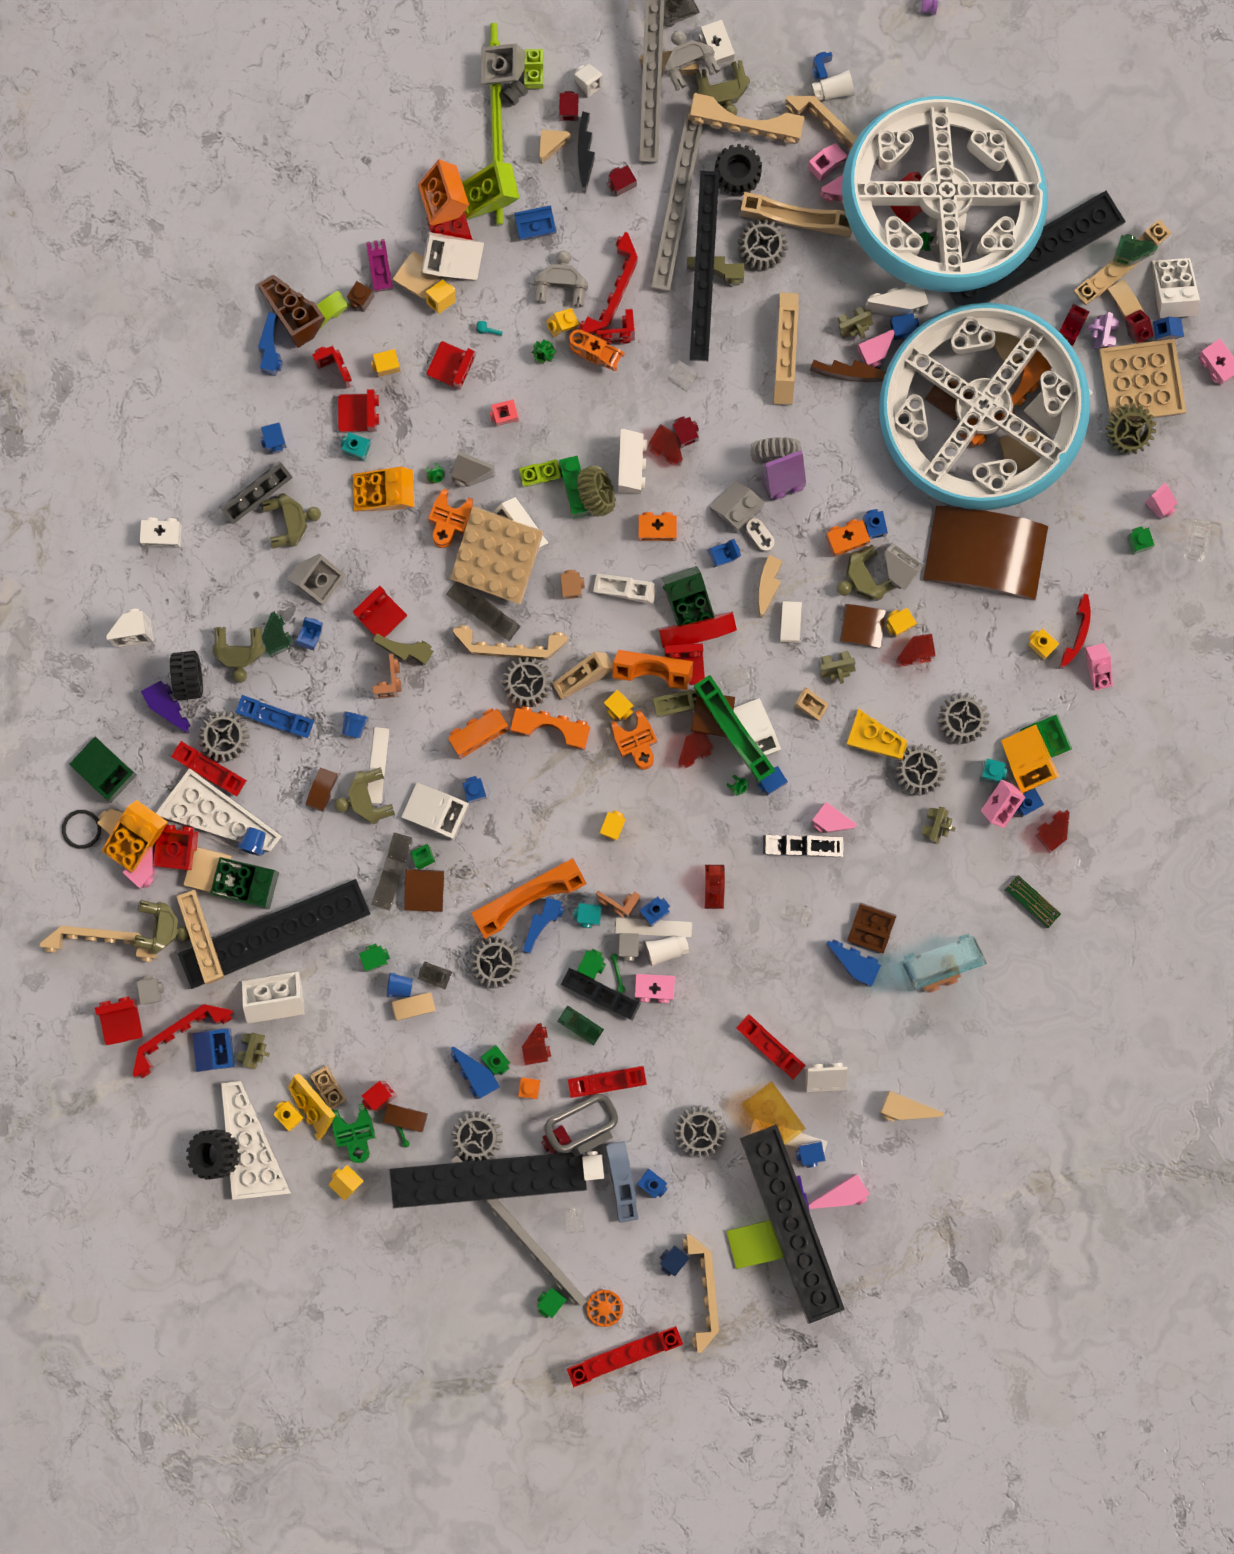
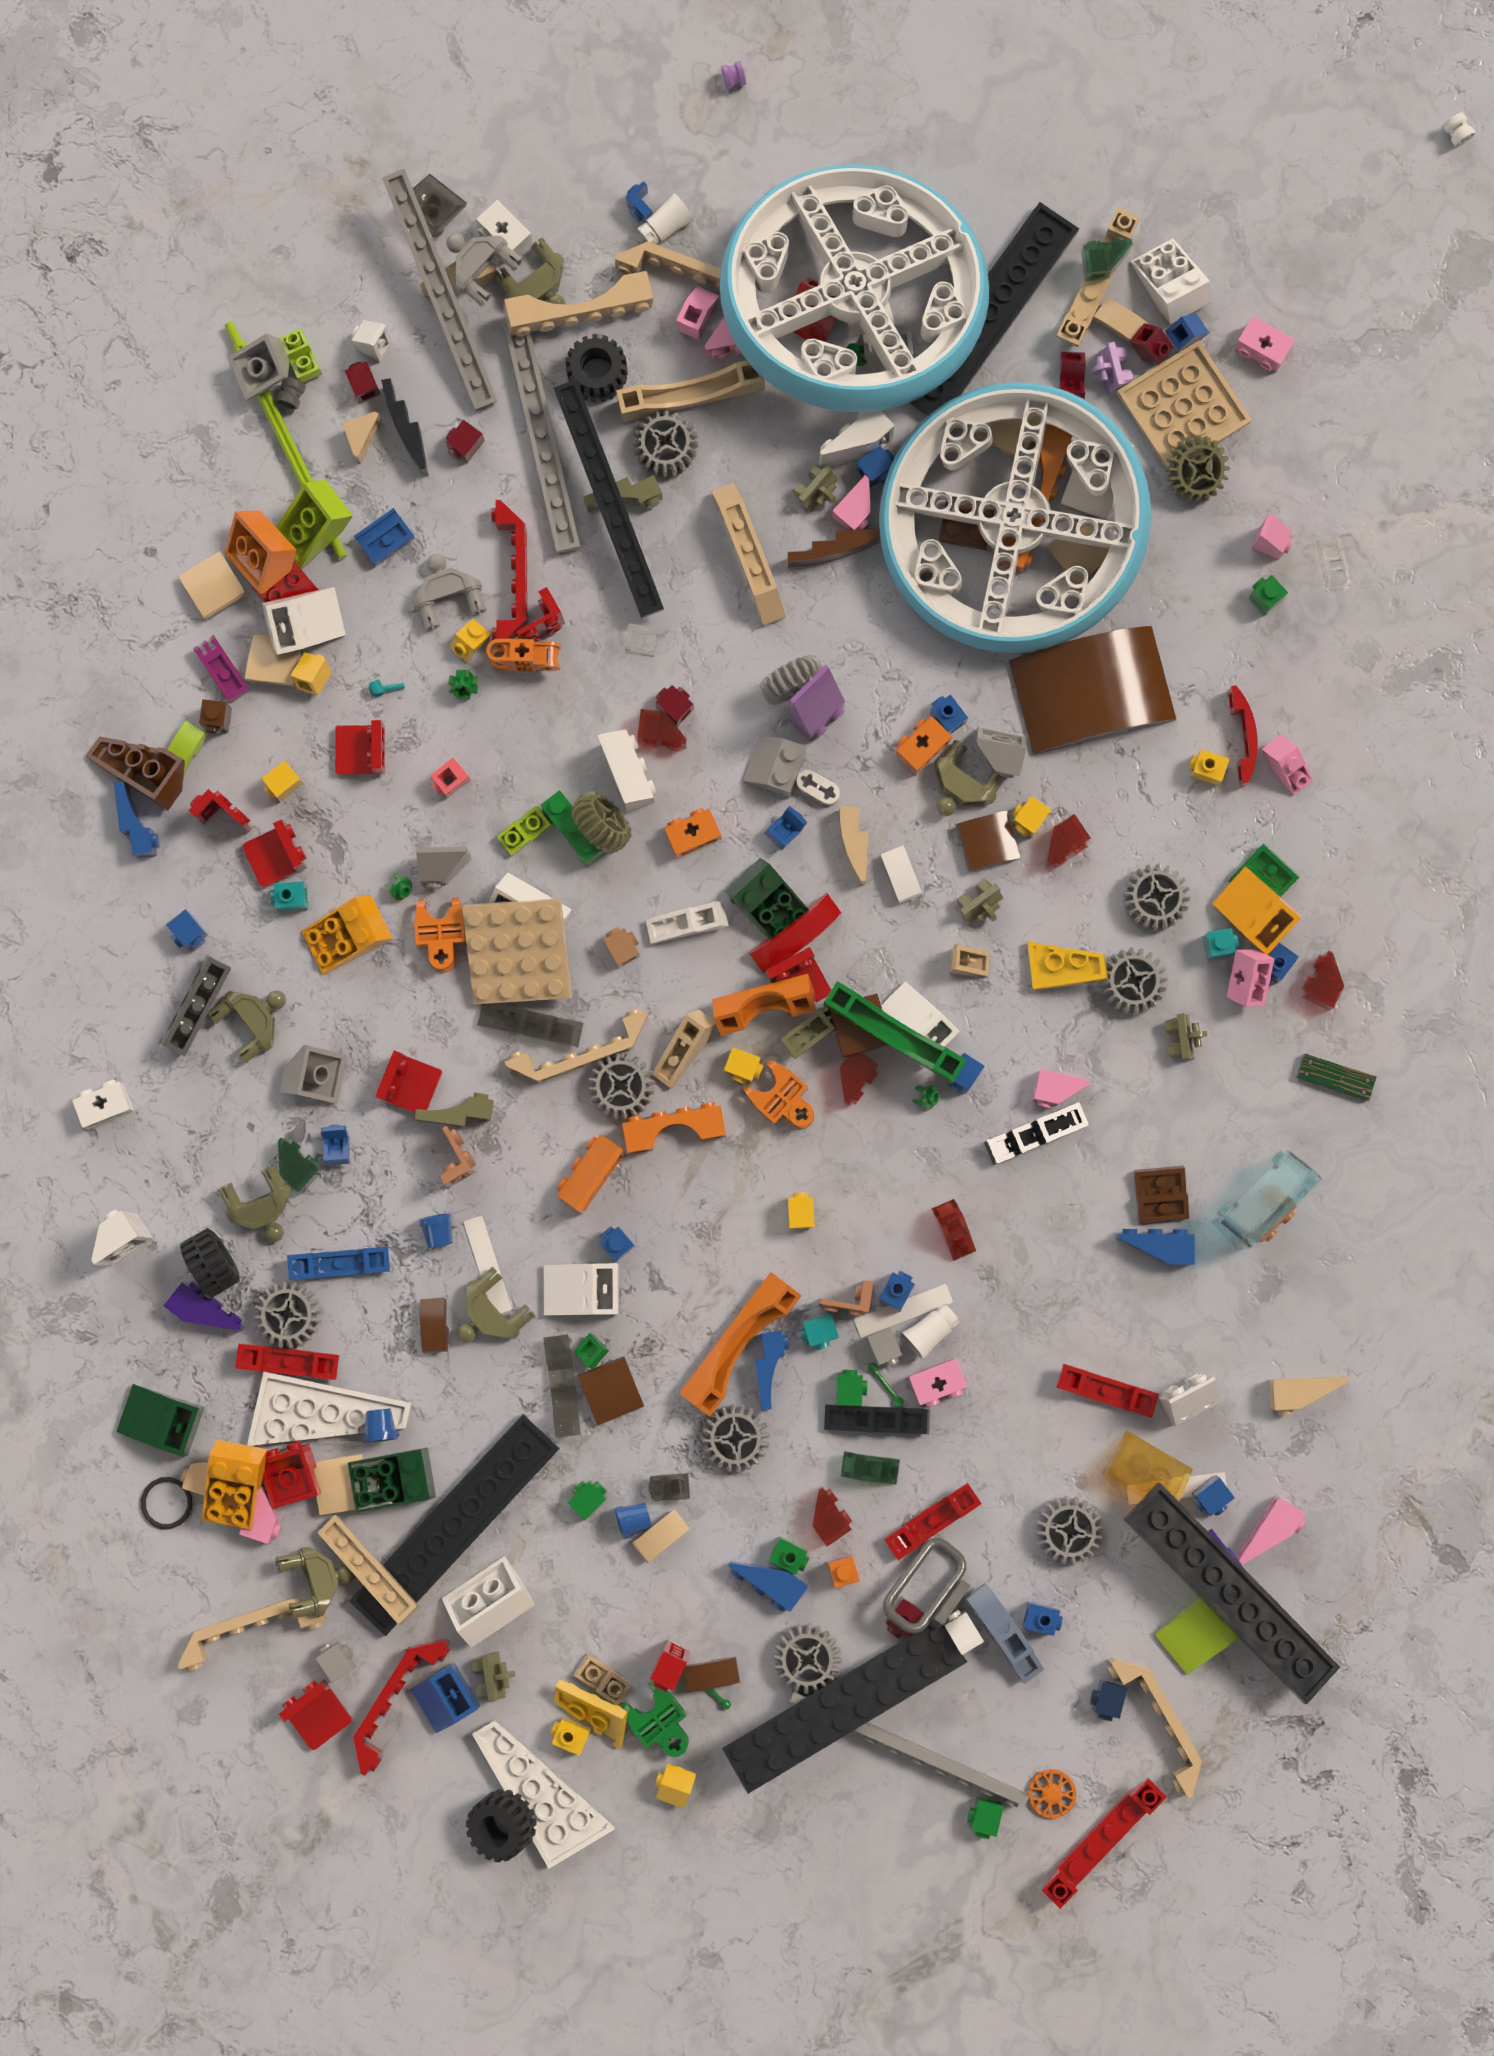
camera: 20 degrees left, 0 degrees up
(399, 203) = (212, 585): none -> tan slope

